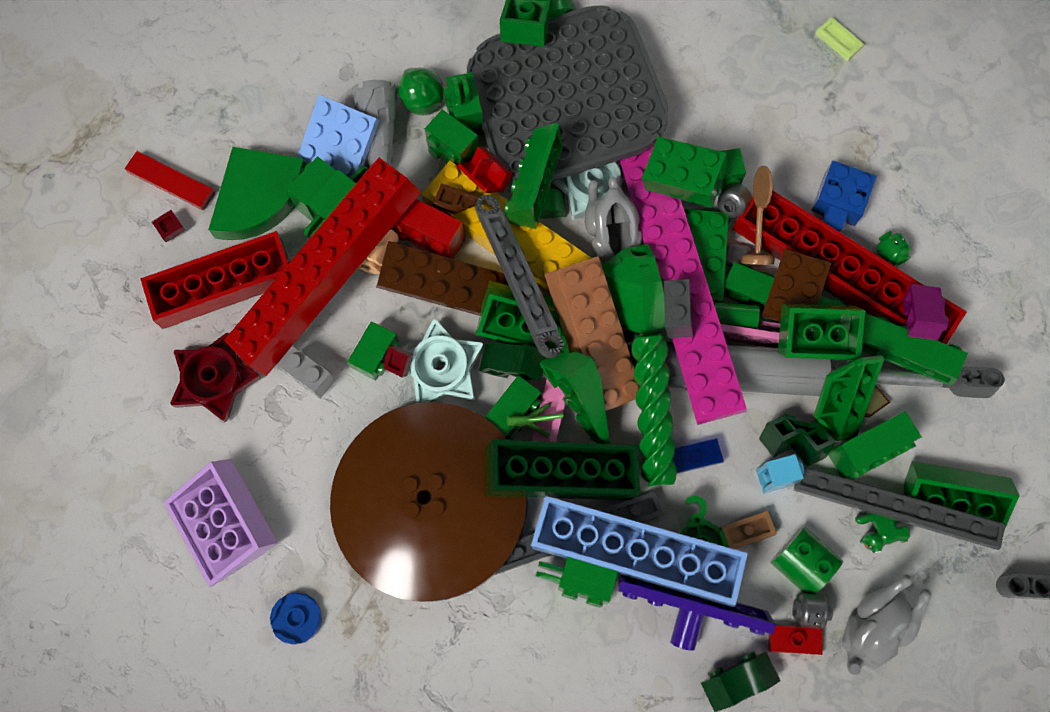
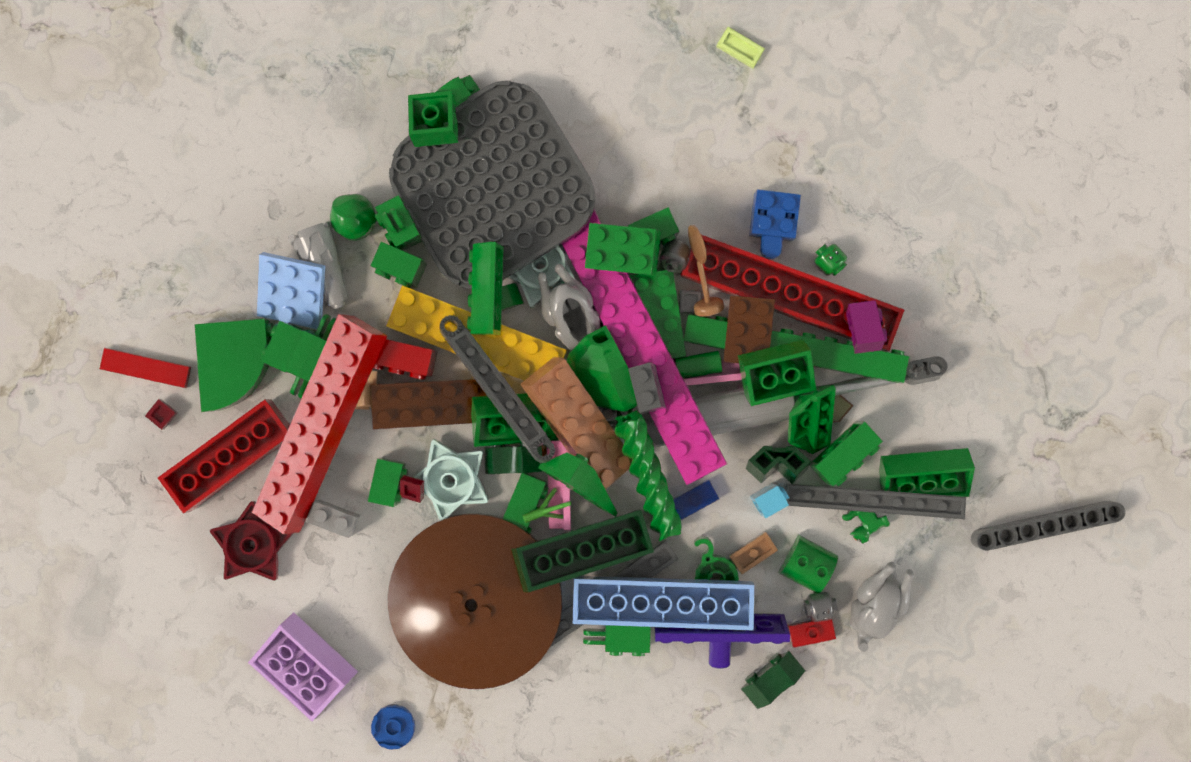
camera: 15 degrees left, 15 degrees up
(453, 199) = (417, 327): reddish brown tile -> none
(486, 171) = (438, 288): red panel -> none

